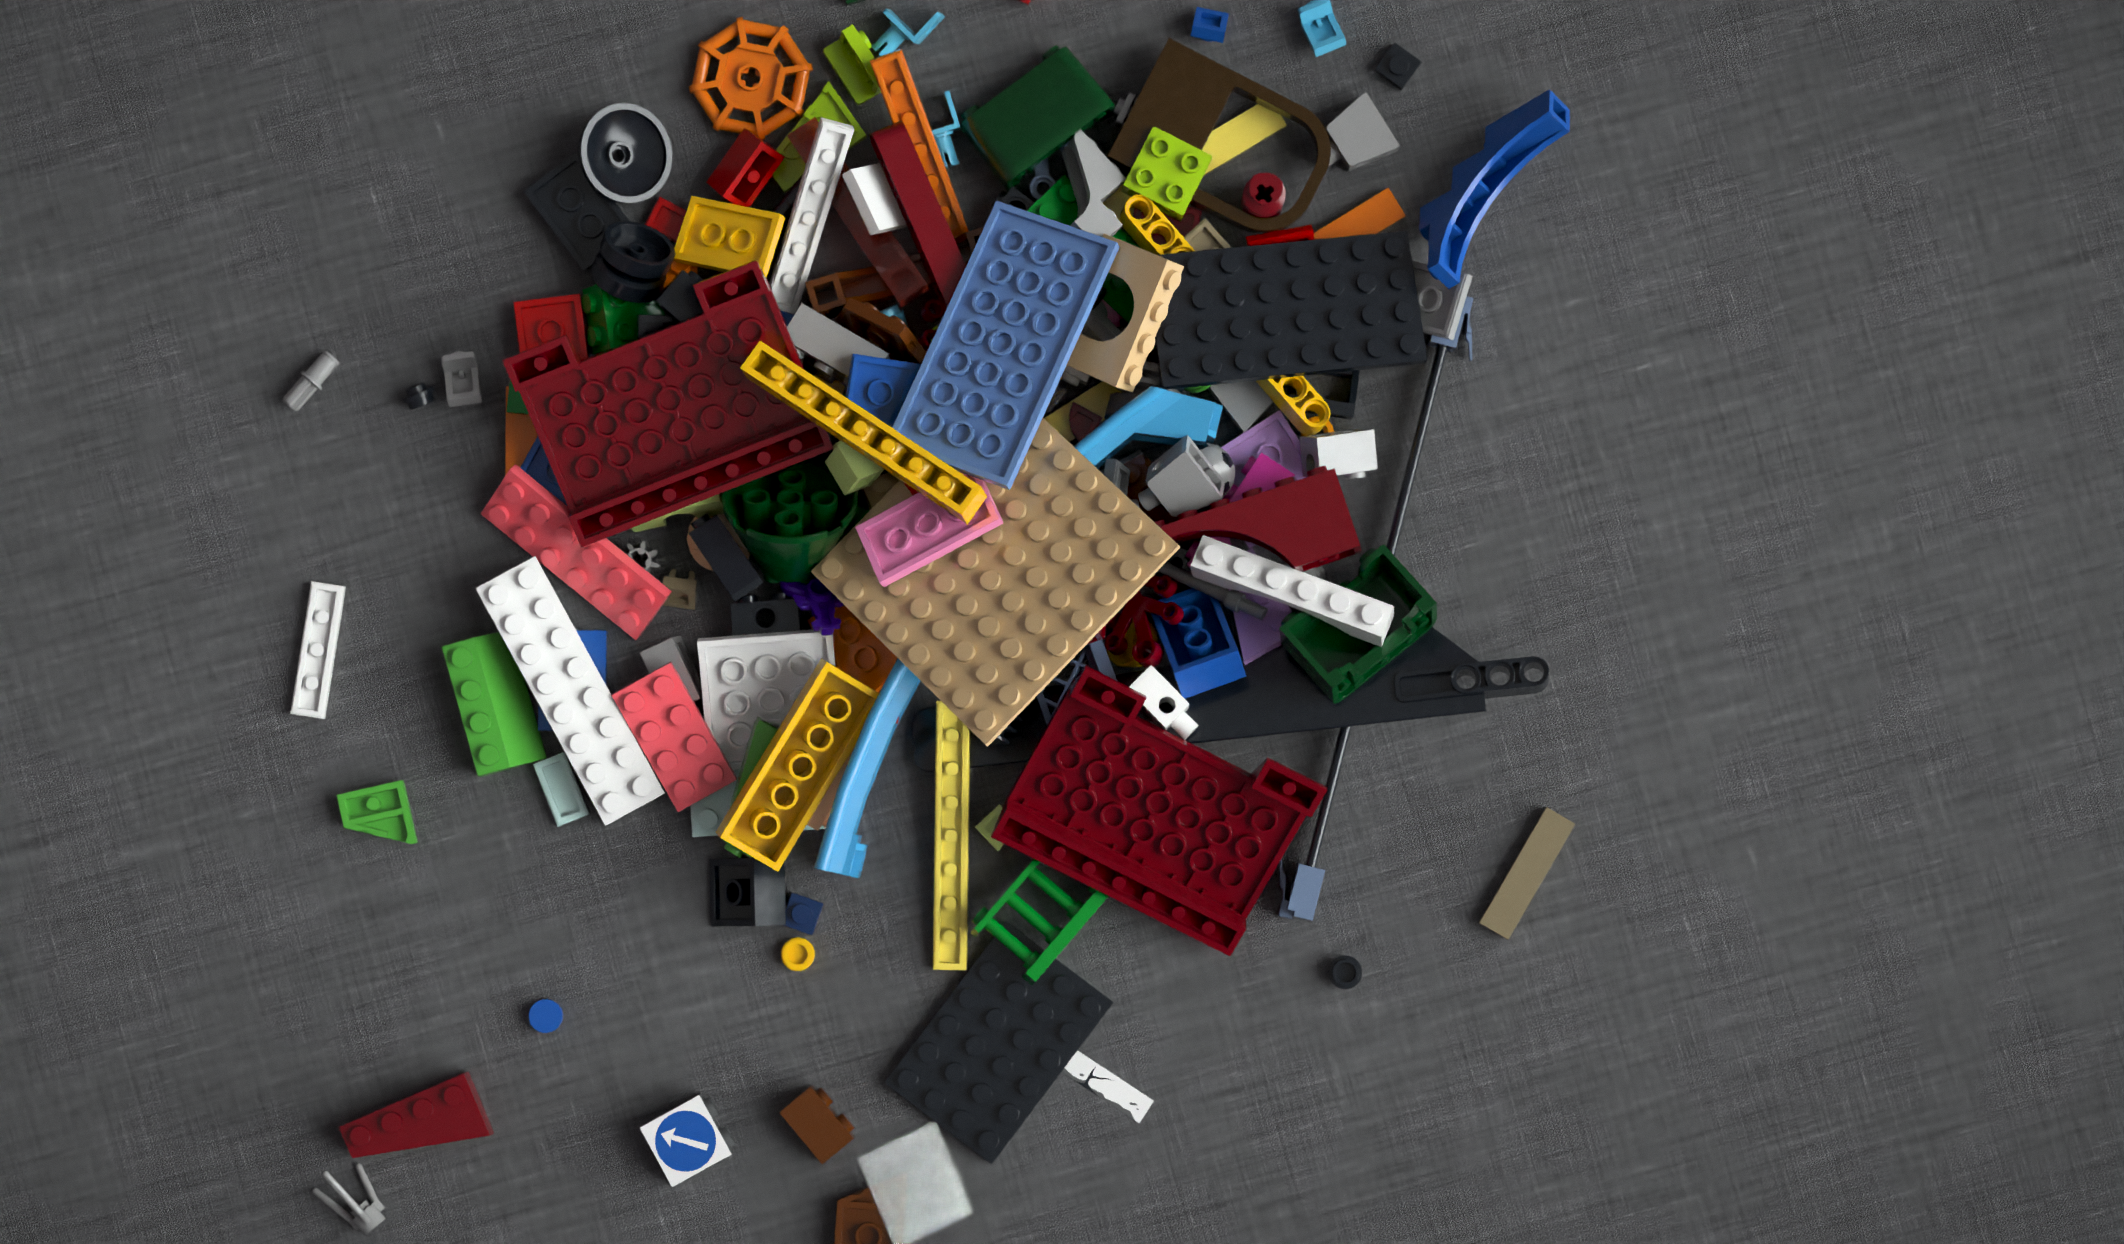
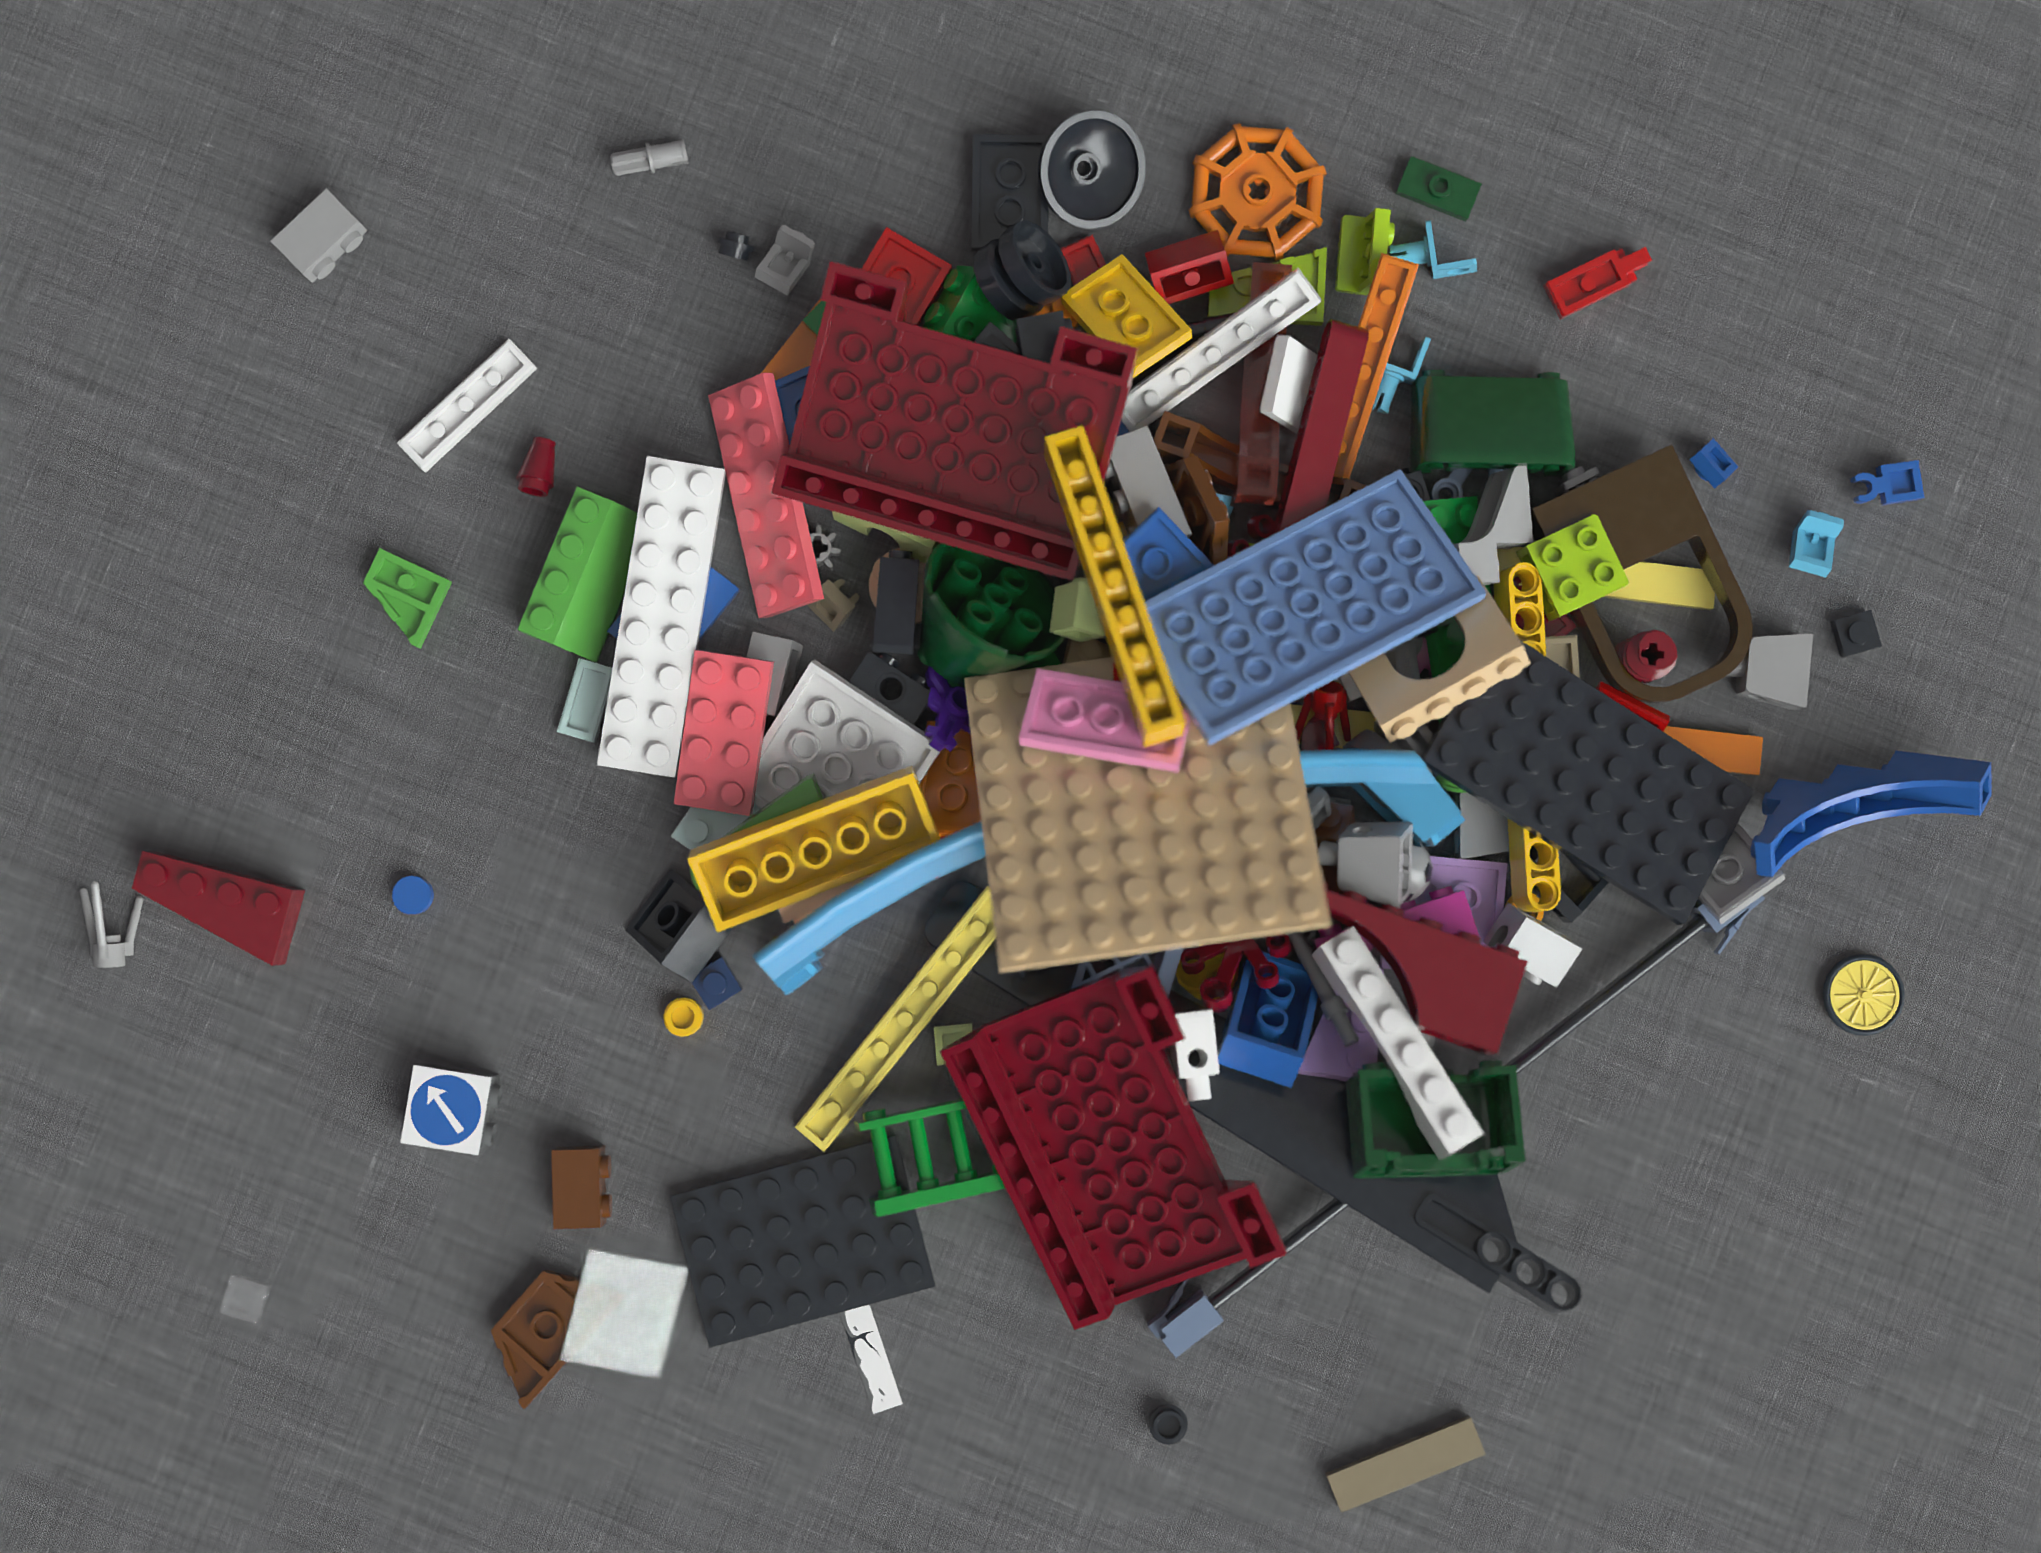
camera: 40 degrees right, 0 degrees up
(125, 612) = (319, 236): none -> light grey brick
(402, 655) = (537, 469): none -> dark red cone
(1070, 396) = (1326, 703): none -> red plant
(1592, 311) = (1863, 994): none -> light yellow wheel

